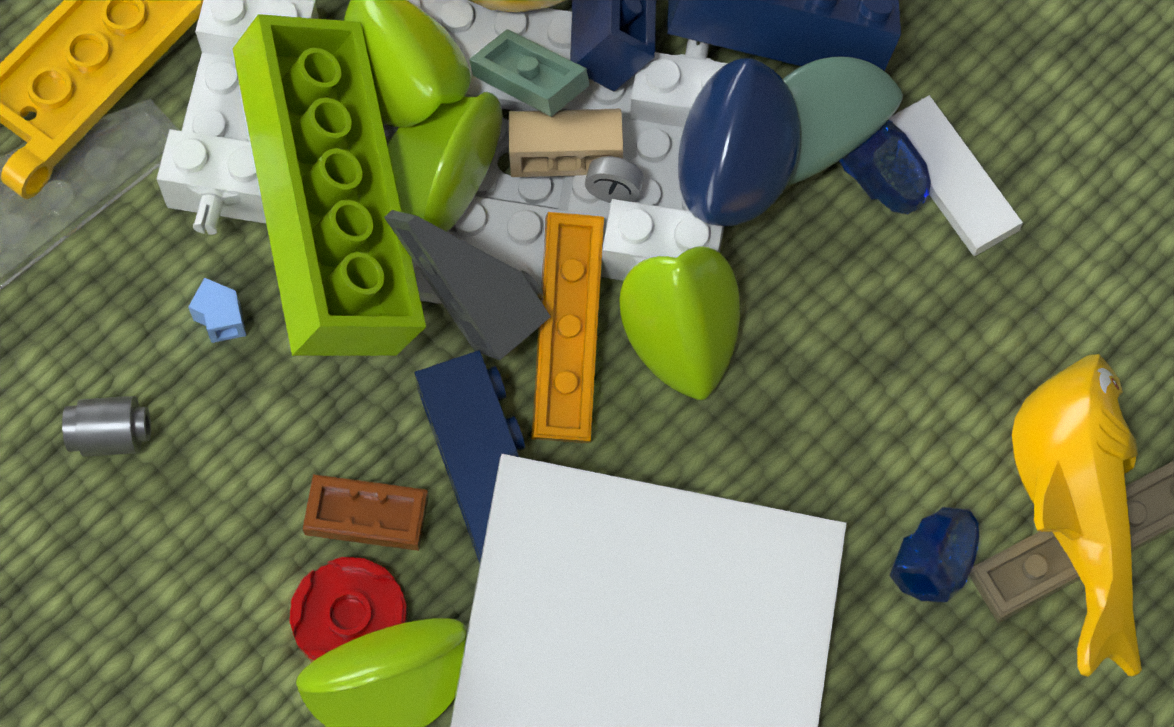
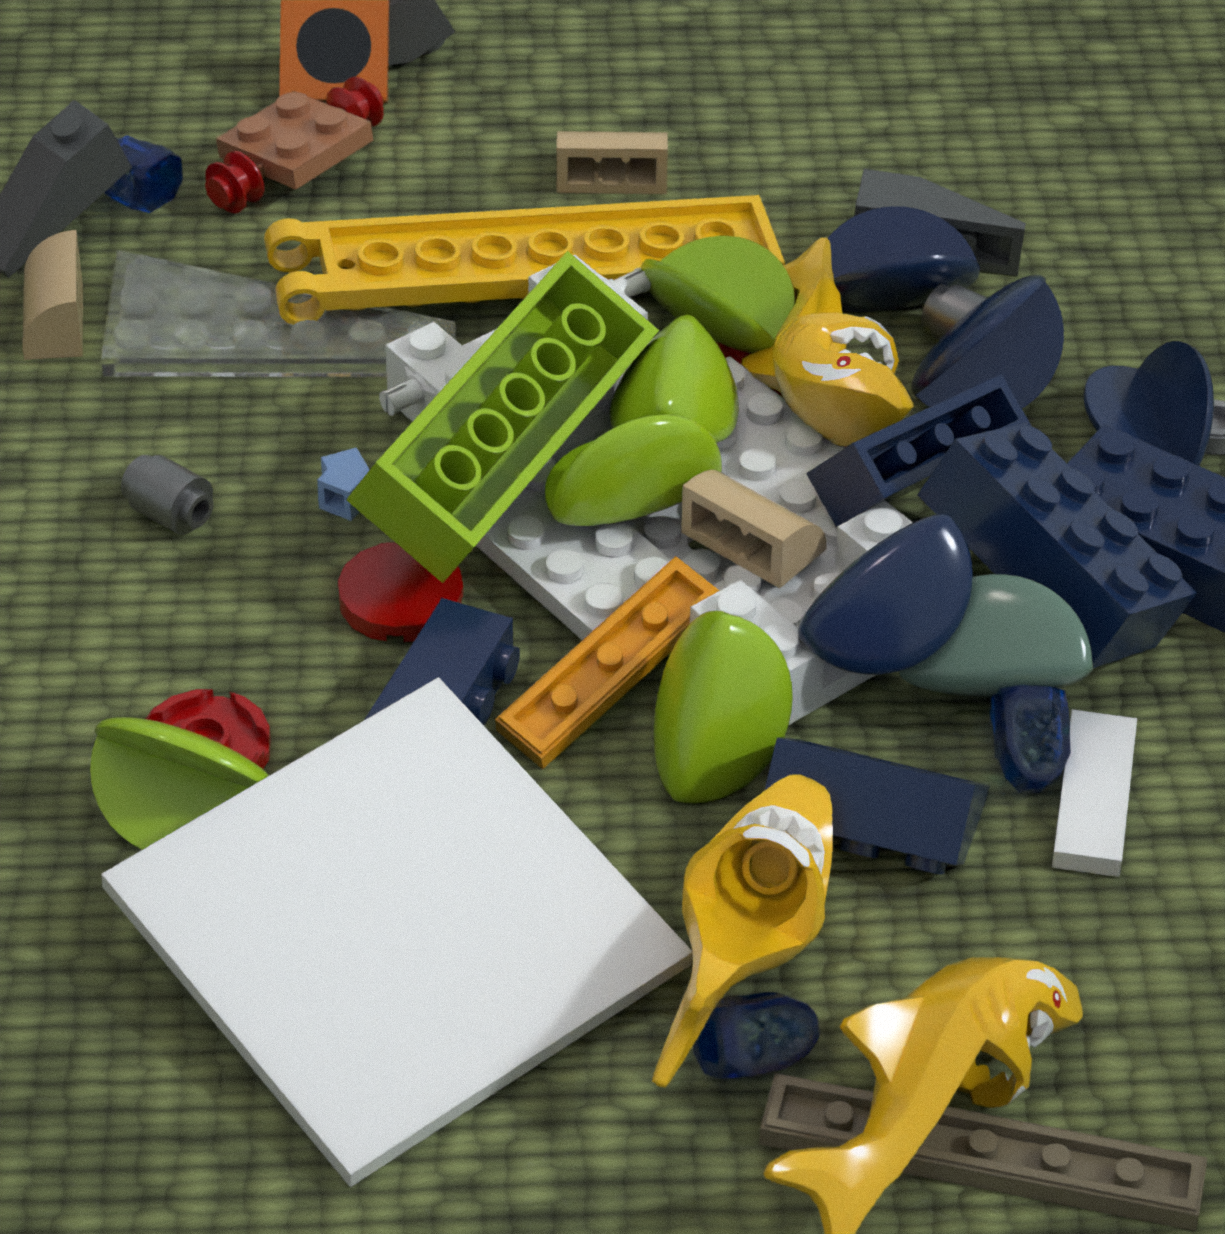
camera: 40 degrees right, 25 degrees down
(351, 389) = (391, 592): none -> red tile
(365, 512) = (299, 681): dark orange plate -> none
(483, 295) = (553, 562): dark grey slope -> none
(529, 72) = (769, 459): sand green plate -> none
(614, 179) = (761, 569): light grey tile -> none
(838, 300) = (888, 803): none -> dark blue slope
(859, 465) = (751, 901): none -> yellow piece

